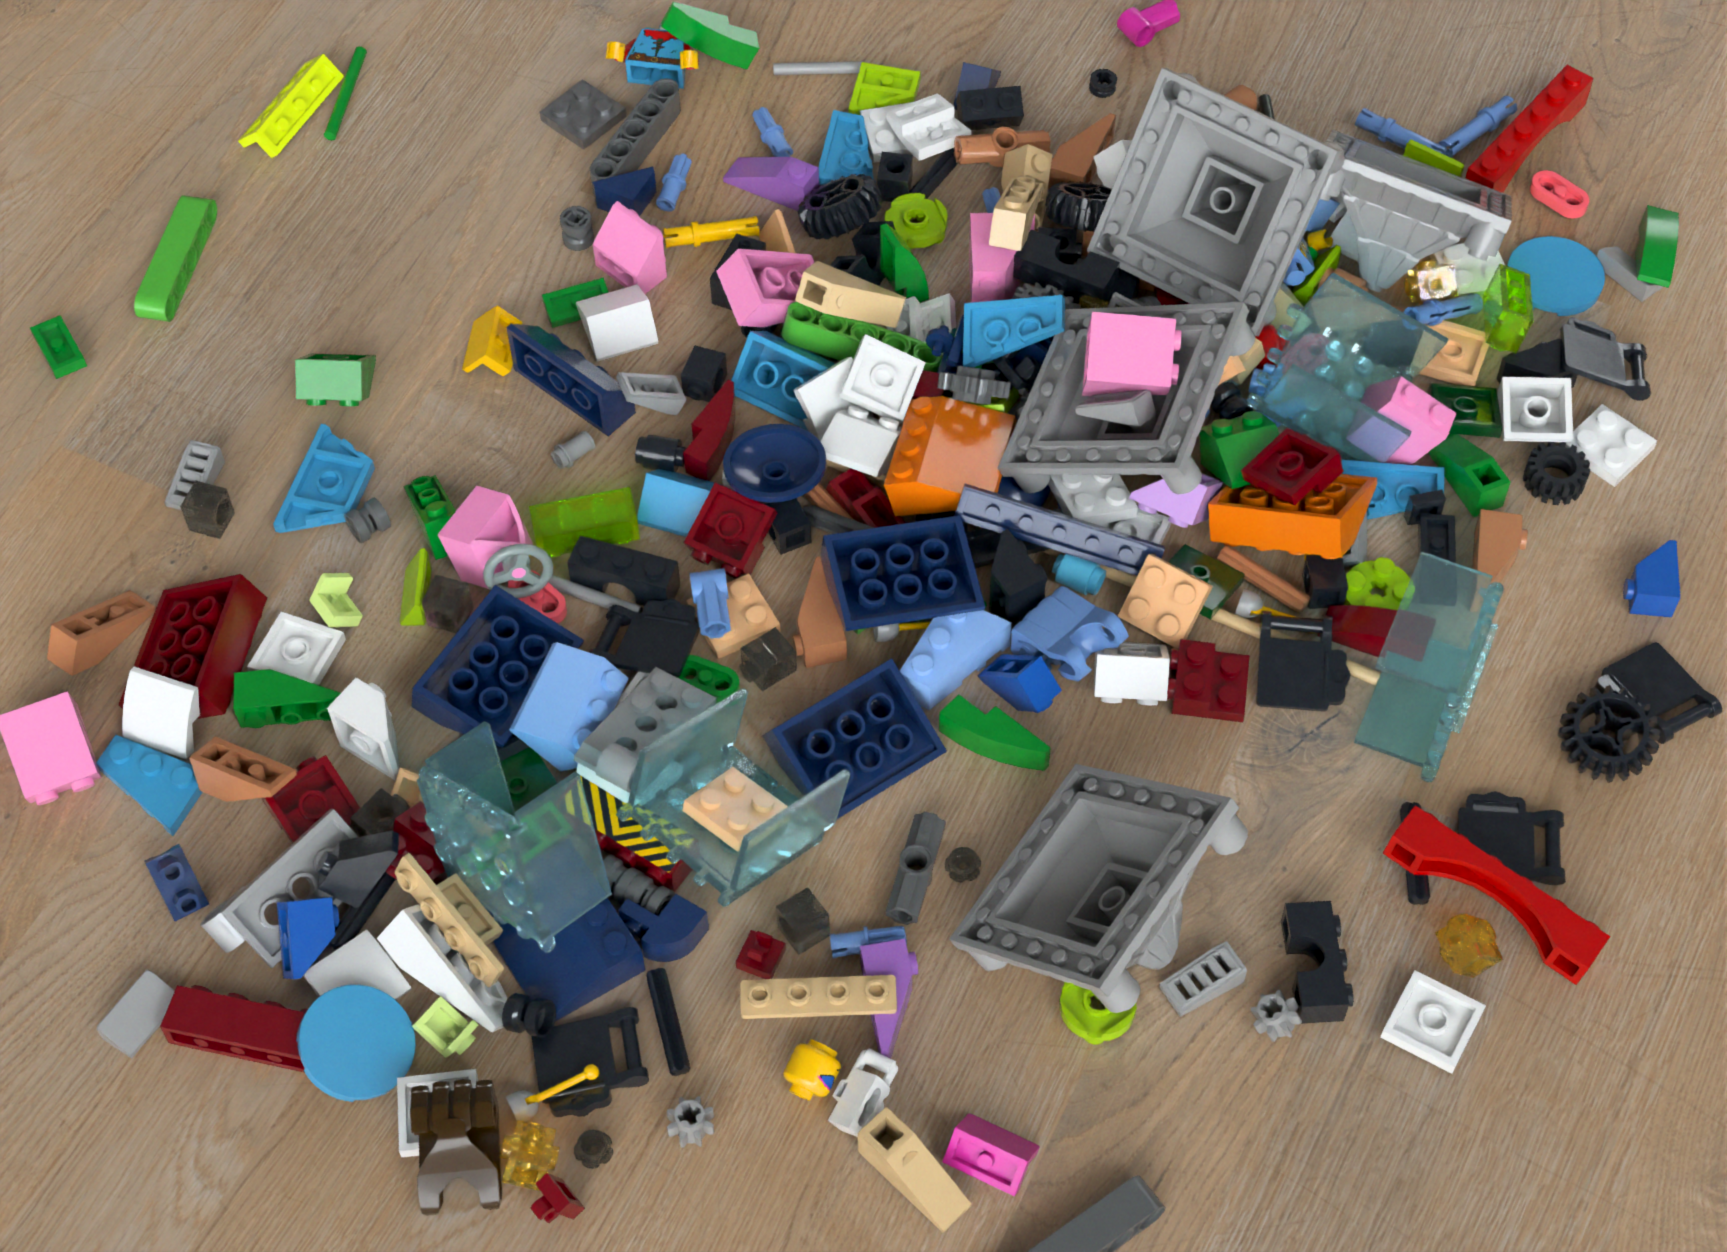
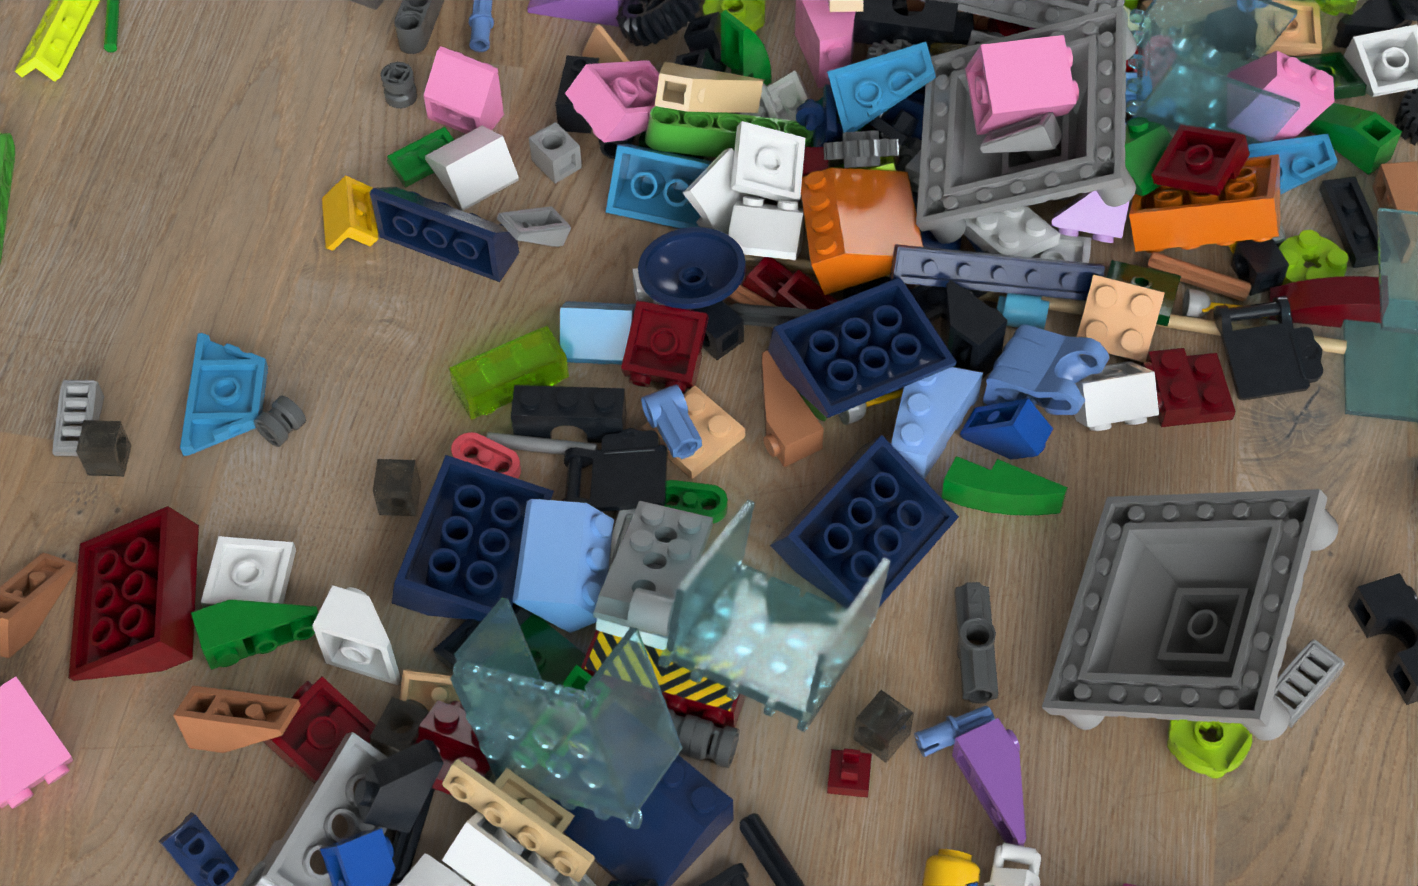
camera: 15 degrees left, 0 degrees up
(153, 779) = (137, 749): dark azure wing -> none
(160, 712) = (122, 674): white slope -> none
(332, 601) = (271, 514): yellowish green bracket -> none
(334, 378) = (196, 285): slope -> none
(416, 584) = (354, 481): lime slope -> none
(431, 509) = (352, 401): green slope -> none
(493, 545) = (426, 417): bright pink piece -> none
(572, 450) = (464, 309): light grey pin -> none
(630, 189) = (424, 42): dark blue slope -> none
(660, 453) = (562, 285): black brick -> none
(669, 934) = (749, 776): dark blue brick -> none
(698, 323) = (555, 152): none -> light grey brick
(703, 373) = (579, 198): black brick -> none
(709, 232) = (522, 66): yellow pin -> none
(711, 434) = (607, 256): dark red slope -> none
(732, 806) = (773, 627): light nougat plate -> none
(767, 659) = (747, 466): clear smoke brick -> none
(818, 996) = (933, 802): tan bracket -> none
(965, 856) = (1023, 619): clear smoke plate -> none
(1276, 1015) = (1378, 702): light grey gear -> none
(1427, 502) = (1324, 170): black tile -> none

